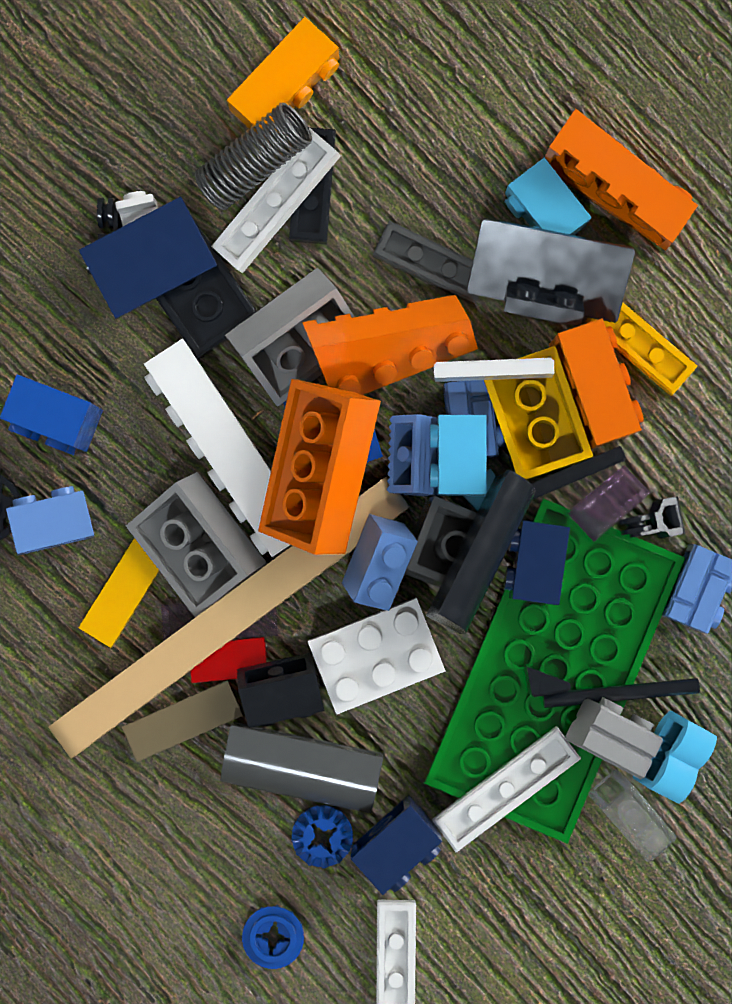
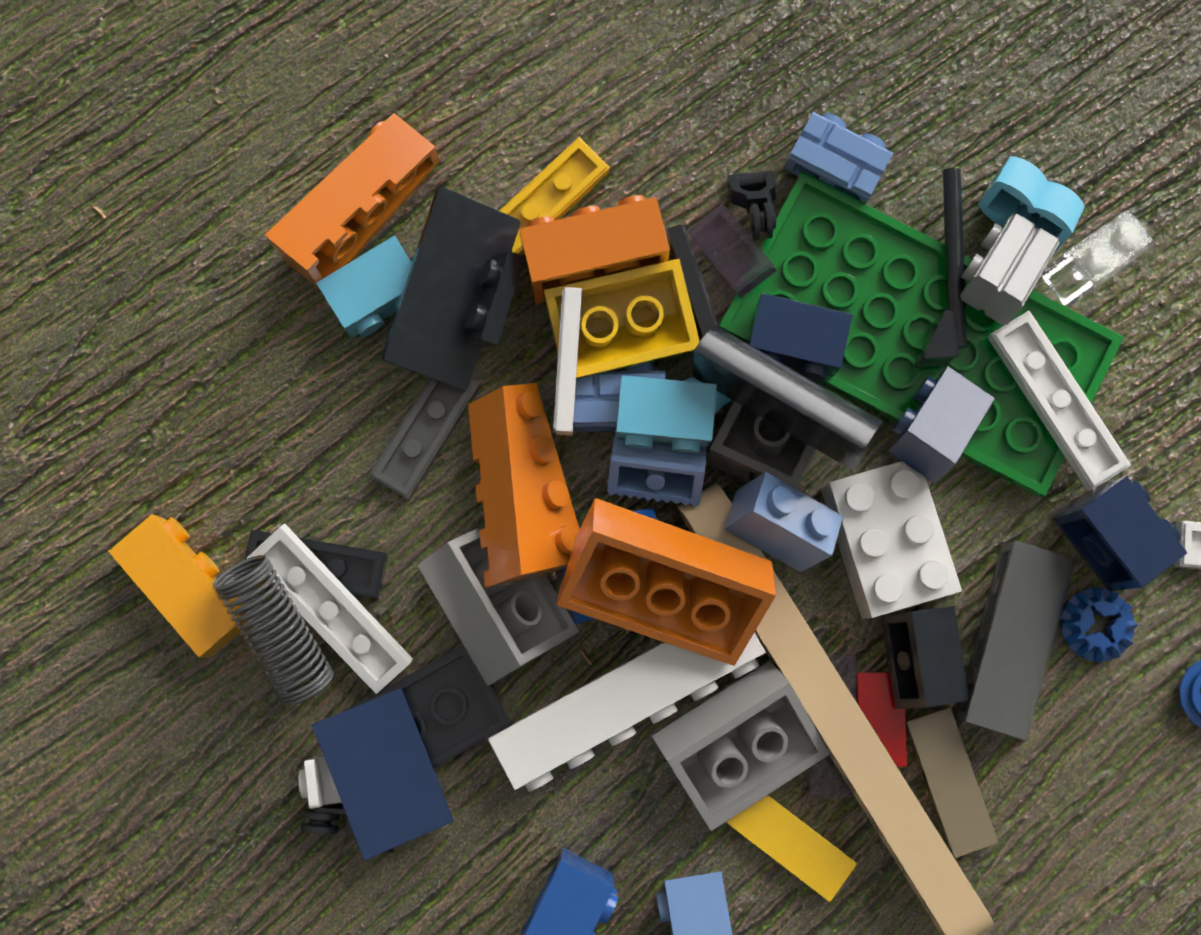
camera: 90 degrees left, 5 degrees down
(472, 686) = (940, 425): none -> brick

